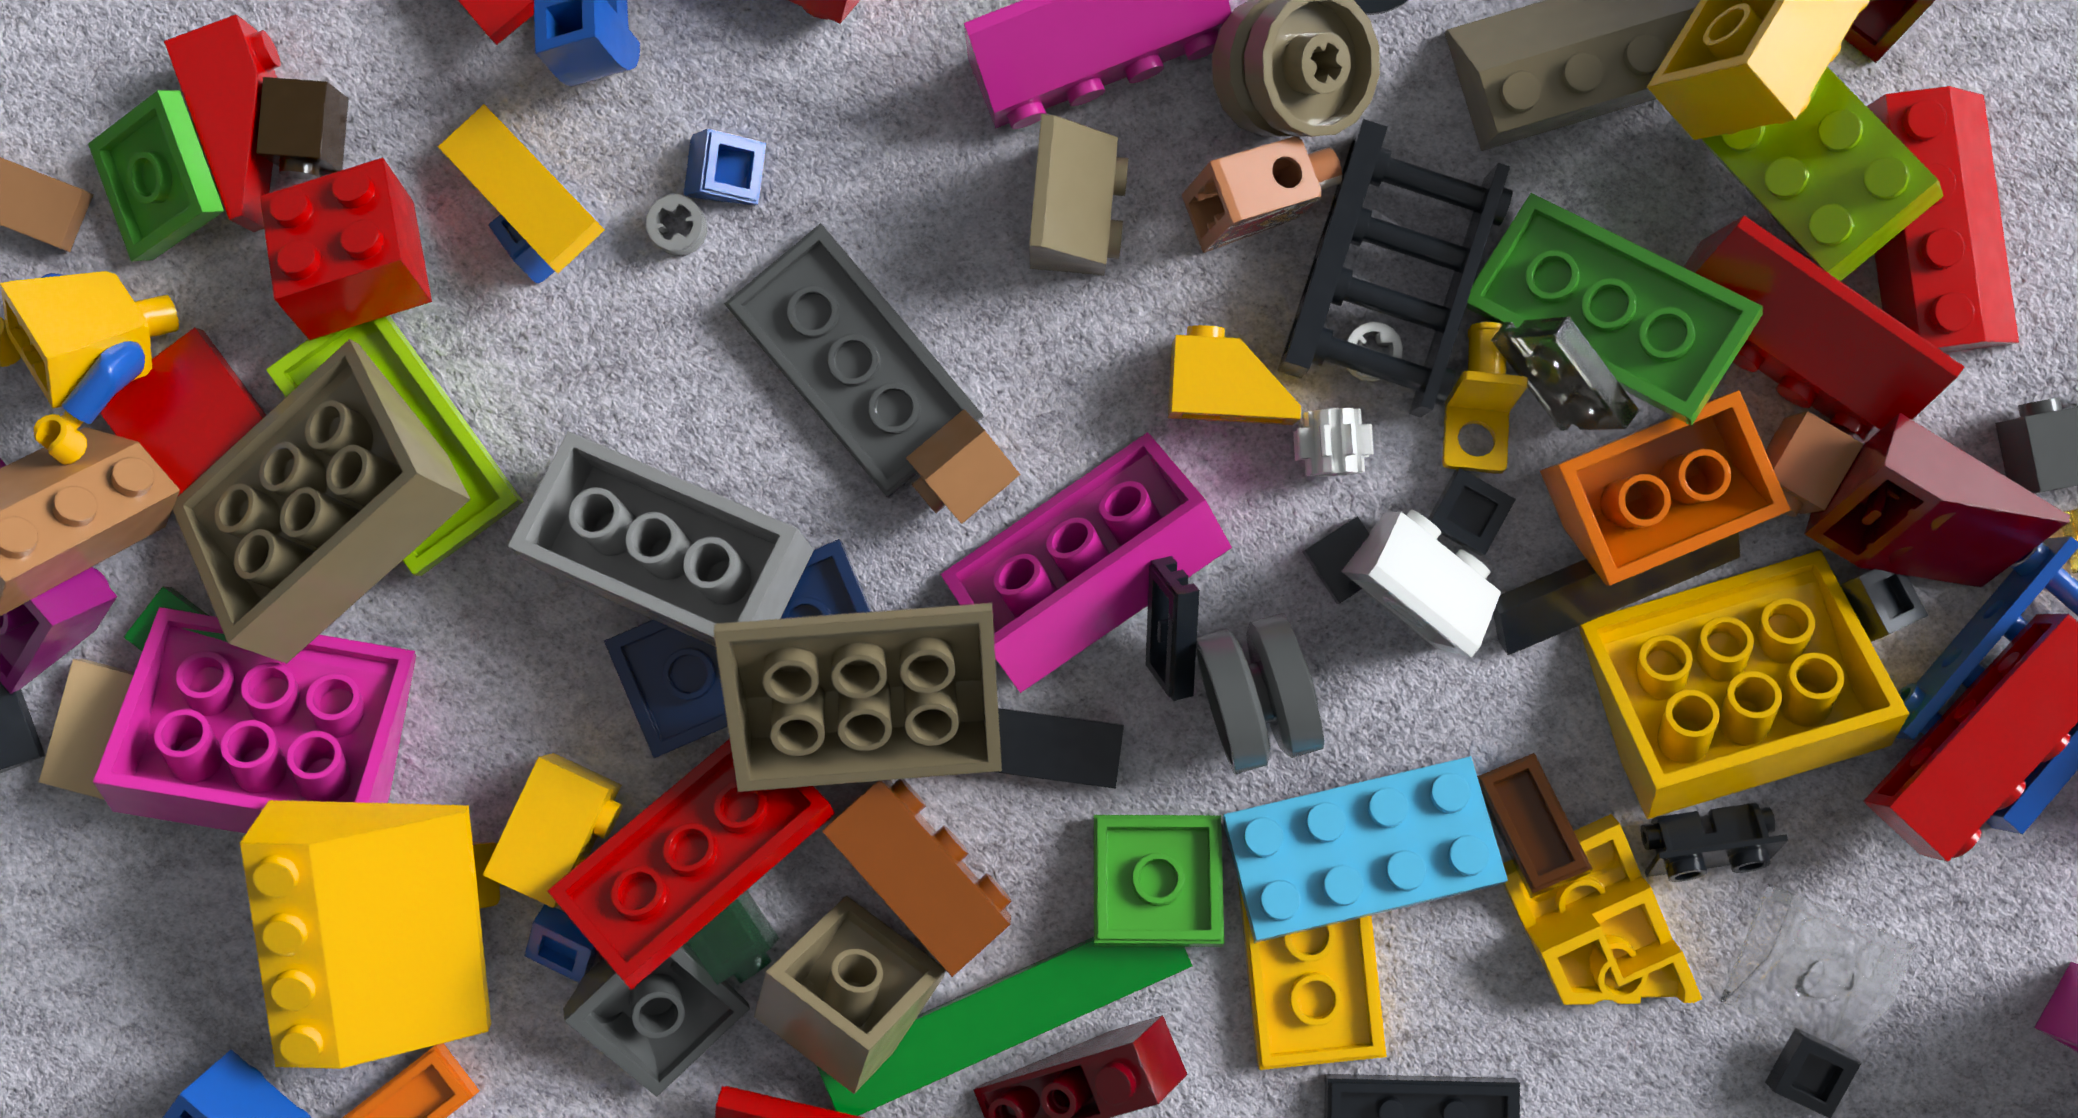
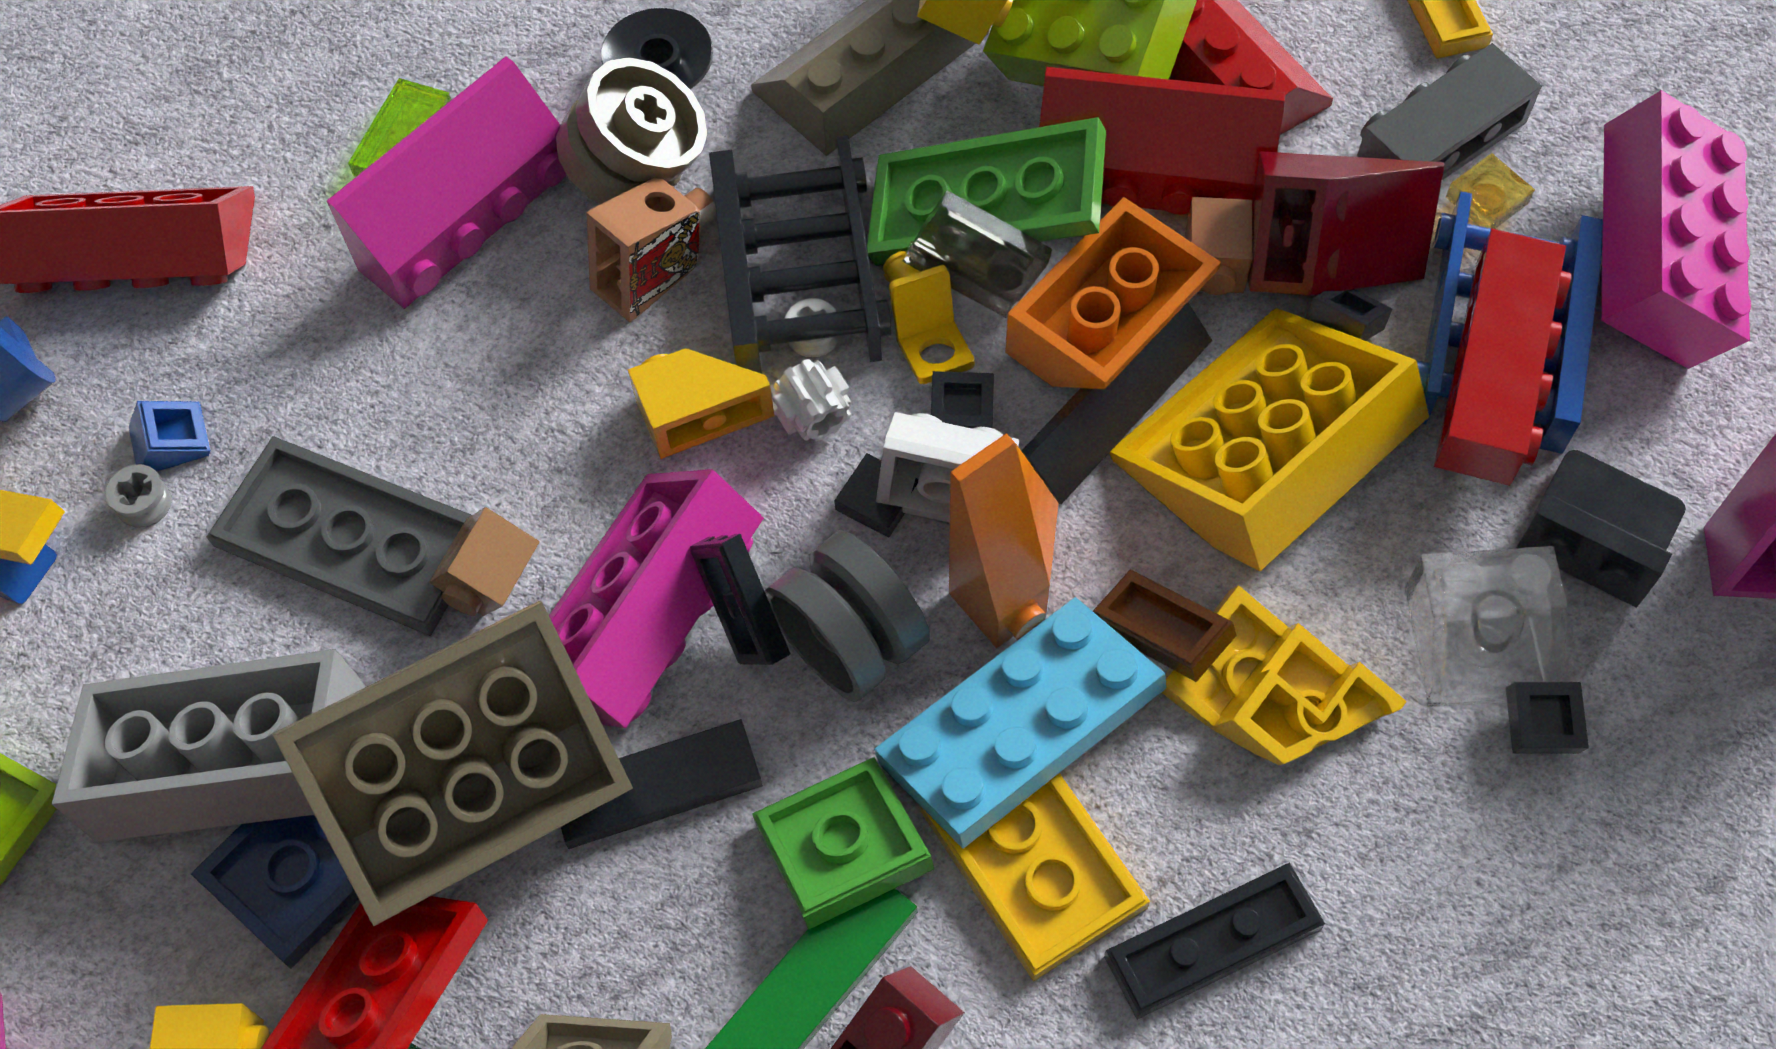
camera: 25 degrees left, 25 degrees down
(921, 873) = (602, 944): dark orange brick -> none
(1074, 198) = (491, 313): dark tan slope -> none
(1426, 712) = (1001, 541): none -> orange wedge
(1737, 840) = (1350, 559): black hinge -> none
(1979, 928) = (1605, 526): none -> black bracket

